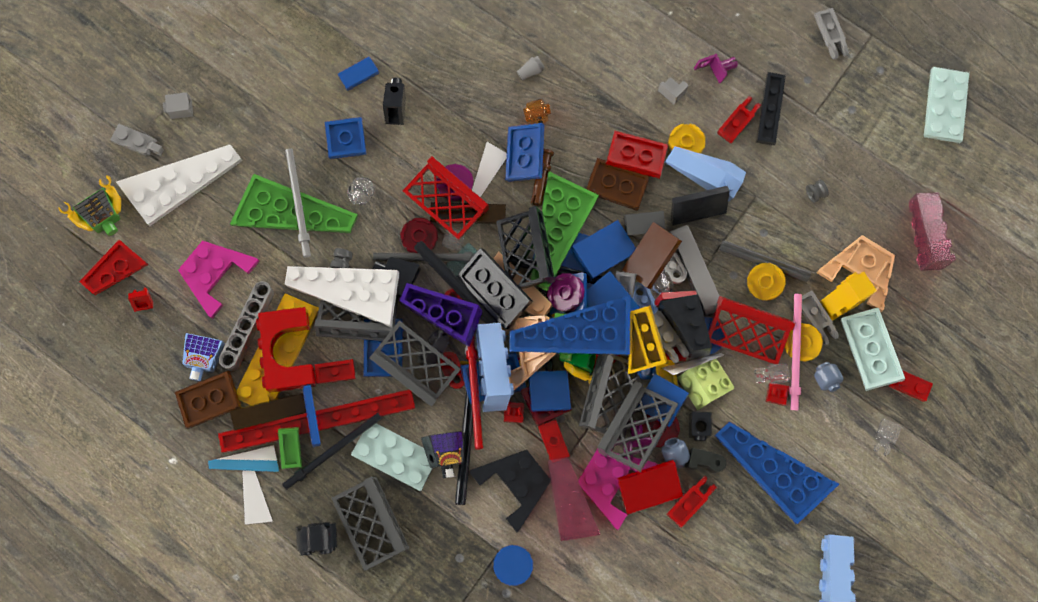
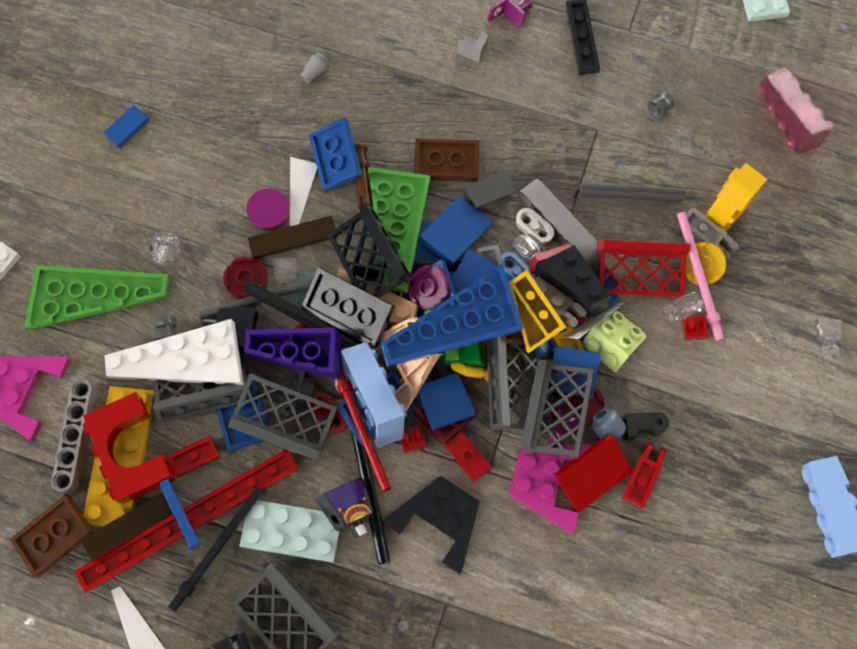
camera: 15 degrees left, 5 degrees down
(201, 354) = (29, 486): torso -> none
(255, 460) = (130, 588): dark azure sticker -> none
(290, 447) = (165, 560): bright green tile -> none
(303, 236) = (113, 316): light grey bar -> none
(345, 138) = (131, 197): blue plate -> none
(394, 102) = (171, 135): black torso -> none
(454, 184) = (269, 209): red fence -> none
(513, 565) = (467, 614): blue tile -> none
(537, 111) = (335, 108): clear orange head -> none
(570, 505) = (511, 522): clear pink wedge -> none
(637, 154) = (457, 122): red tile -> none
(652, 255) = (510, 219): reddish brown tile -> none
(687, 137) = (505, 95): yellow tile -> none
(699, 205) = (543, 153): black tile -> none
(706, 170) = (543, 119): light blue wedge -> none
(706, 419) = (625, 378): black brick -> none
(738, 121) = (552, 58): red hinge -> none
(766, 281) = (640, 212): yellow tile -> none
(783, 478) = (734, 415): blue wing -> none
(828, 377) = (744, 292): sand blue head -> none
(866, 257) = (734, 153): light nougat wing -> none
(872, 349) = (780, 248): light aqua plate -> none
(913, 386) = (826, 273): red hinge -> none

